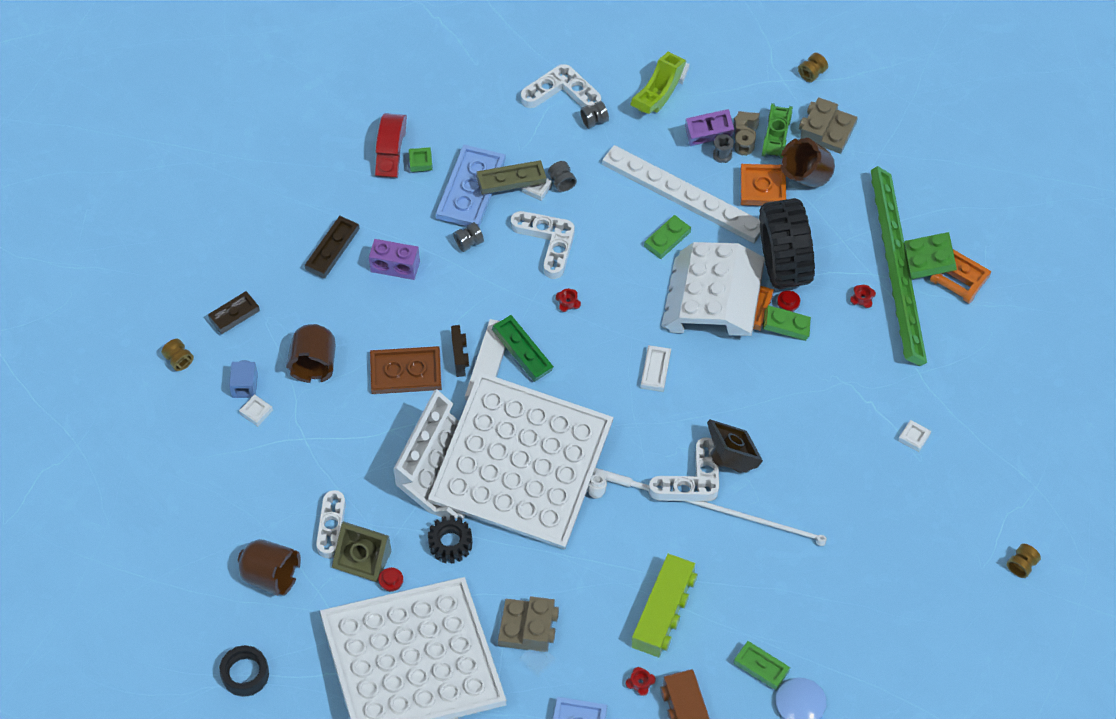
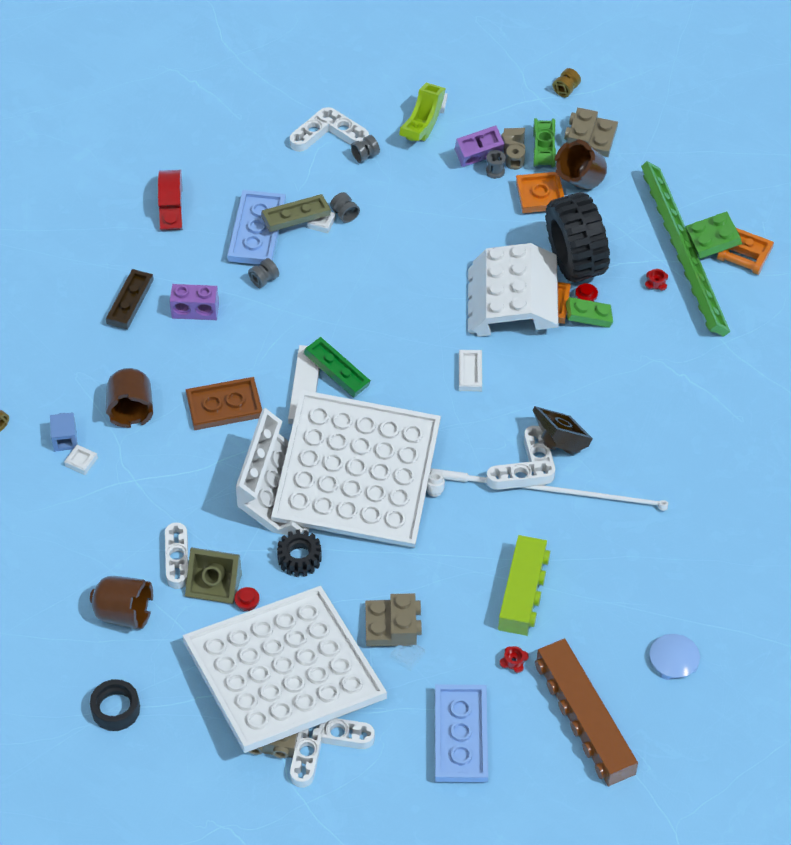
camera: 10 degrees left, 5 degrees down
(233, 312) = (42, 371): dark brown plate -> none
(420, 159) = (202, 209): bright green plate -> none
(461, 359) = (272, 370): dark brown plate -> none
(556, 238) = (349, 263): white beam -> none
(568, 294) = (368, 315): red plate -> none
(667, 237) = (457, 250): bright green plate -> none
(683, 193) = (465, 210): white plate -> none
(761, 665) = (630, 627): bright green plate -> none
(914, 436) = (732, 399): white tile -> none

